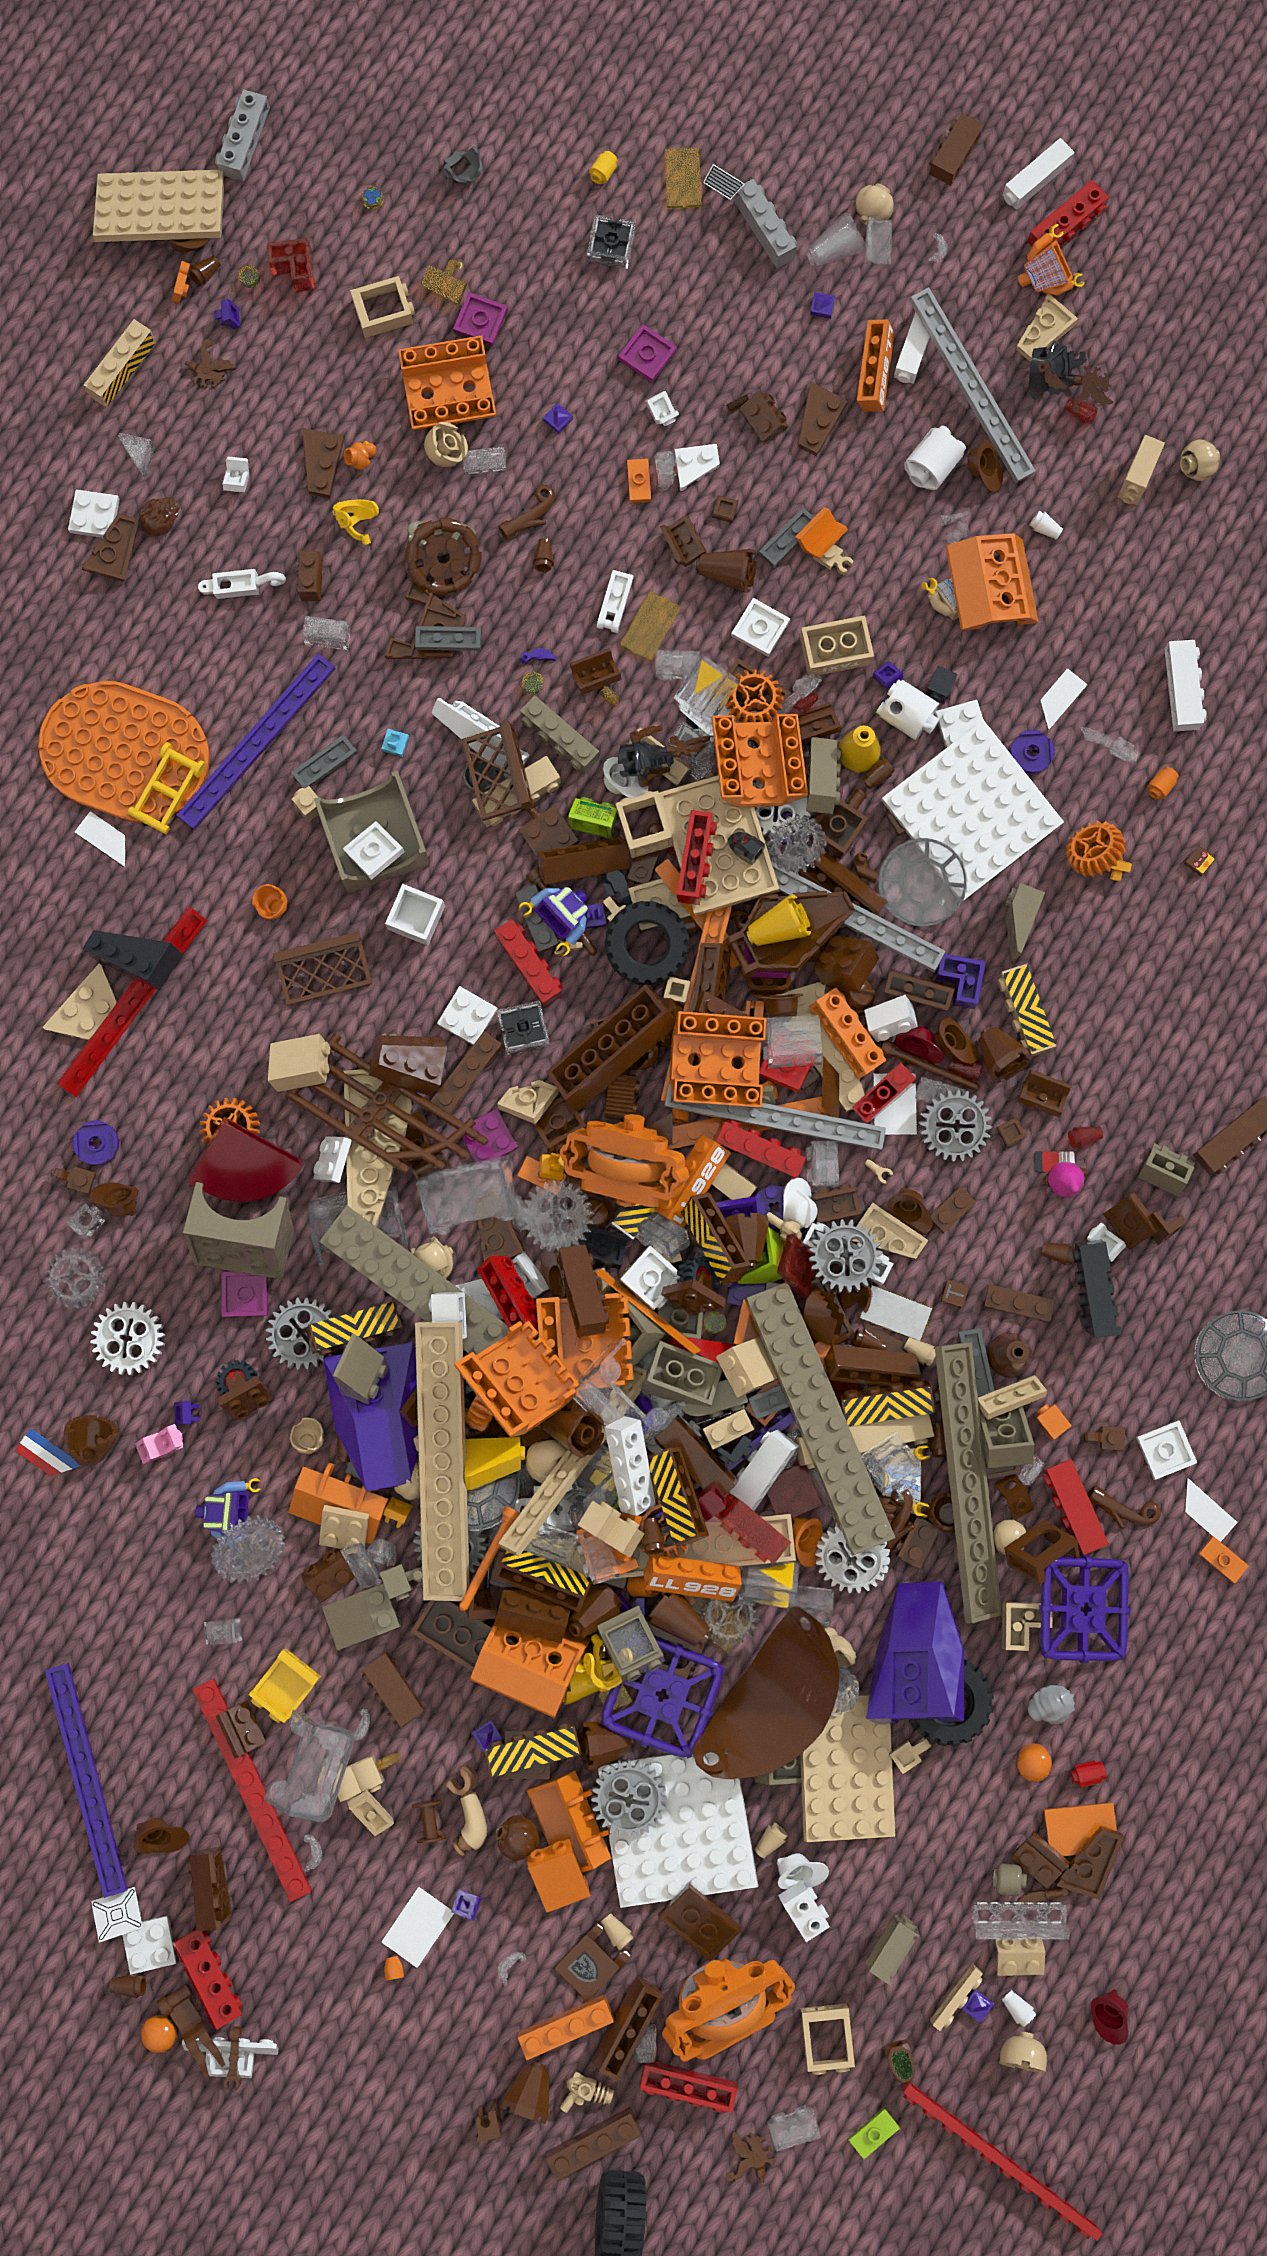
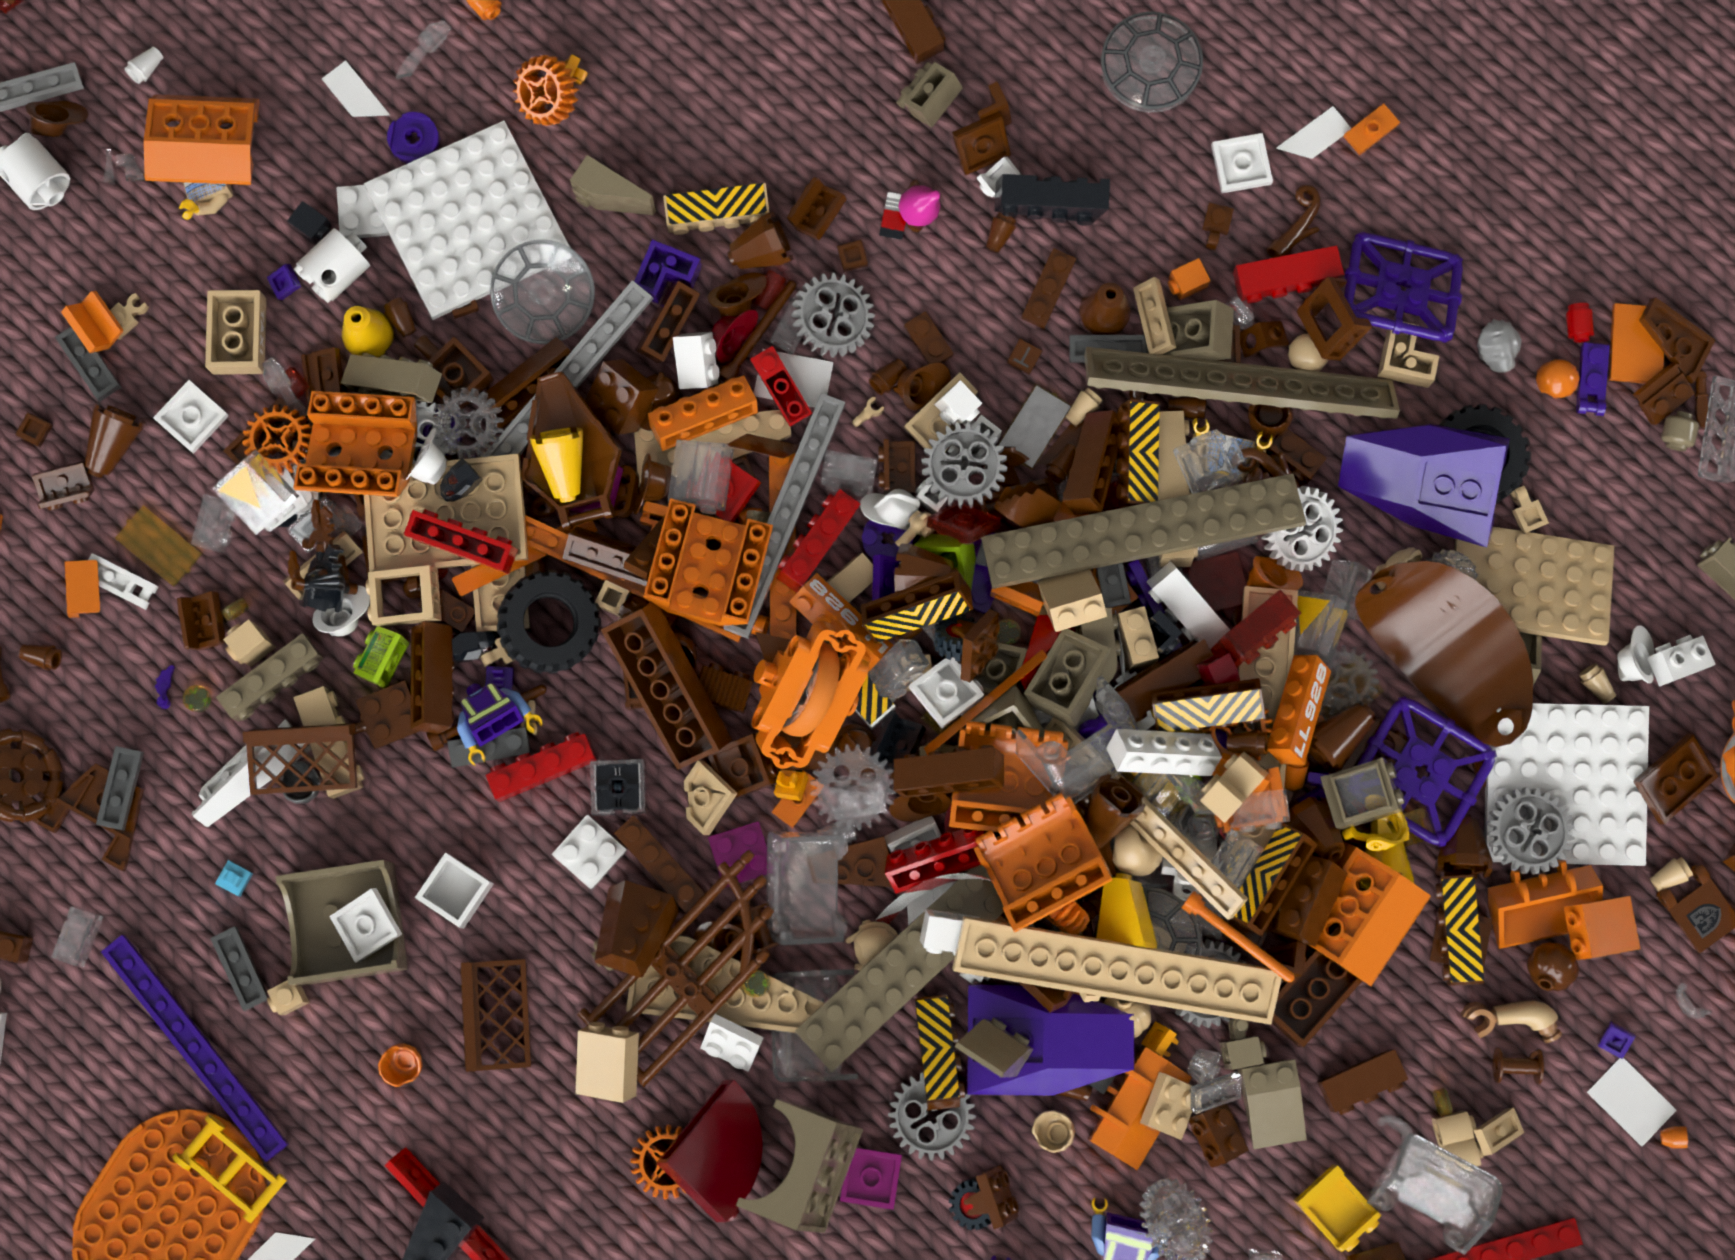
camera: 80 degrees left, 0 degrees up
(316, 1852) = (1530, 1204): clear piece -> none
(380, 1169) = (757, 984): none -> clear yellow tile
(473, 1277) = (906, 898): none -> clear sticker
(487, 1734) = (1431, 982): dark purple tile -> none
(583, 711) = (248, 643): none -> tan brick
(603, 573) = (82, 587): none -> orange panel
(755, 820) = (429, 463): none -> white piece
(862, 869) = (509, 359): reddish brown arm -> none
(896, 1242) = (958, 405): none -> white brick
(912, 1180) = (886, 377): none -> reddish brown cone
(1041, 1794) = (1593, 378): none -> dark purple plate
(1083, 1136) = (873, 176): clear red cone -> none

